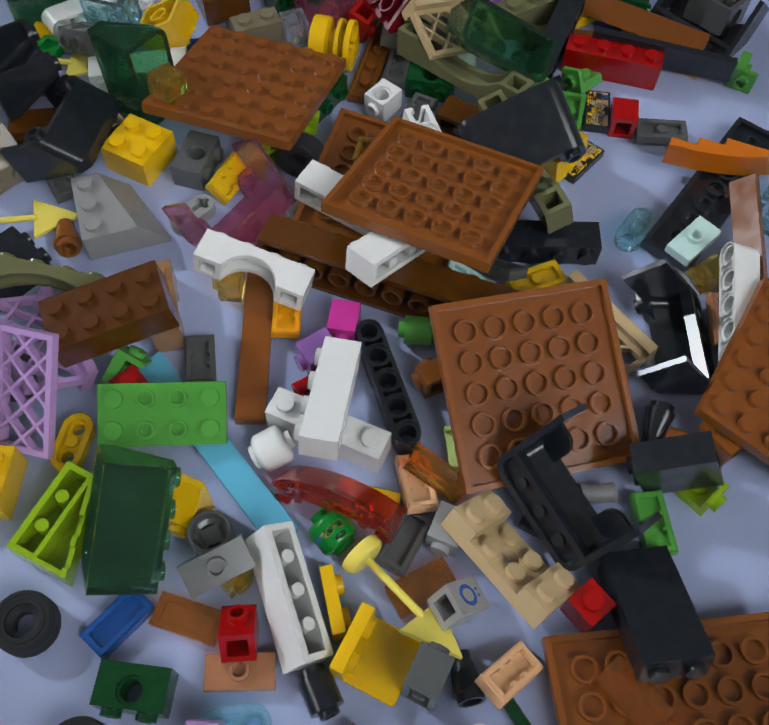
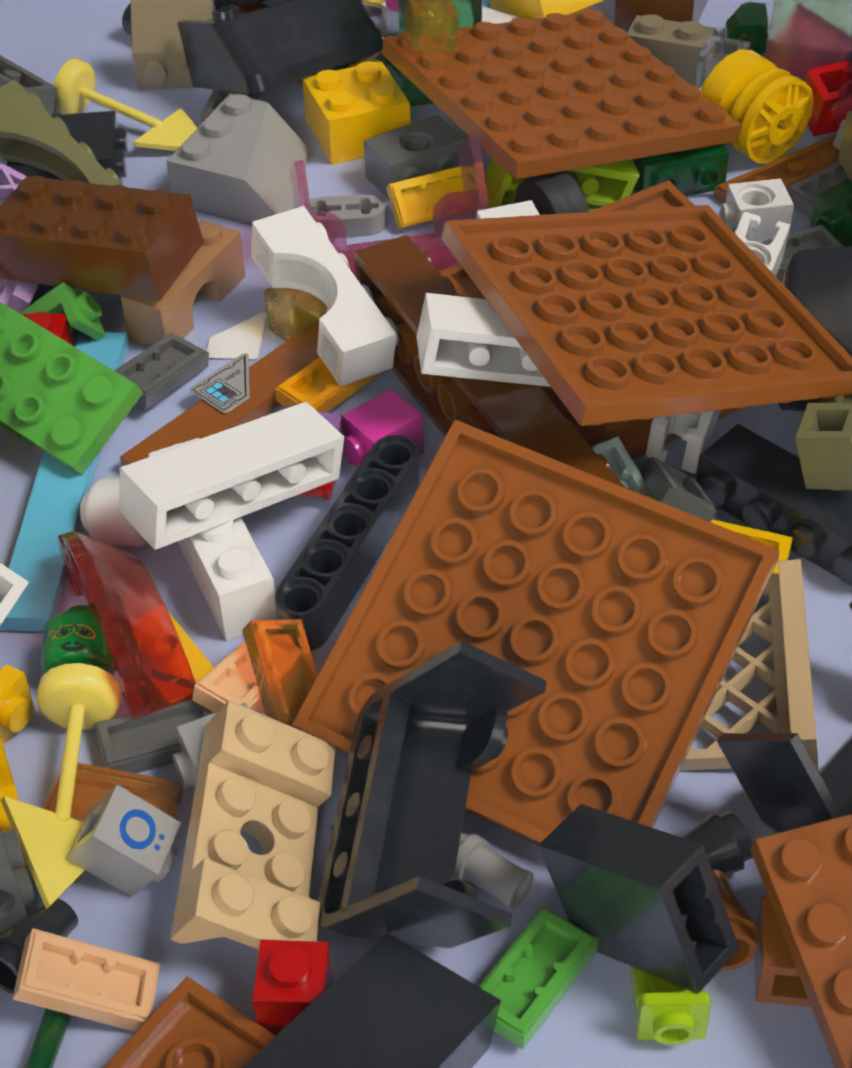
camera: 45 degrees right, 15 degrees down
(67, 239) = (153, 164): dark orange cone -> none
(213, 316) = (239, 339): none -> white sticker
(243, 346) = (226, 386): none -> light grey sticker

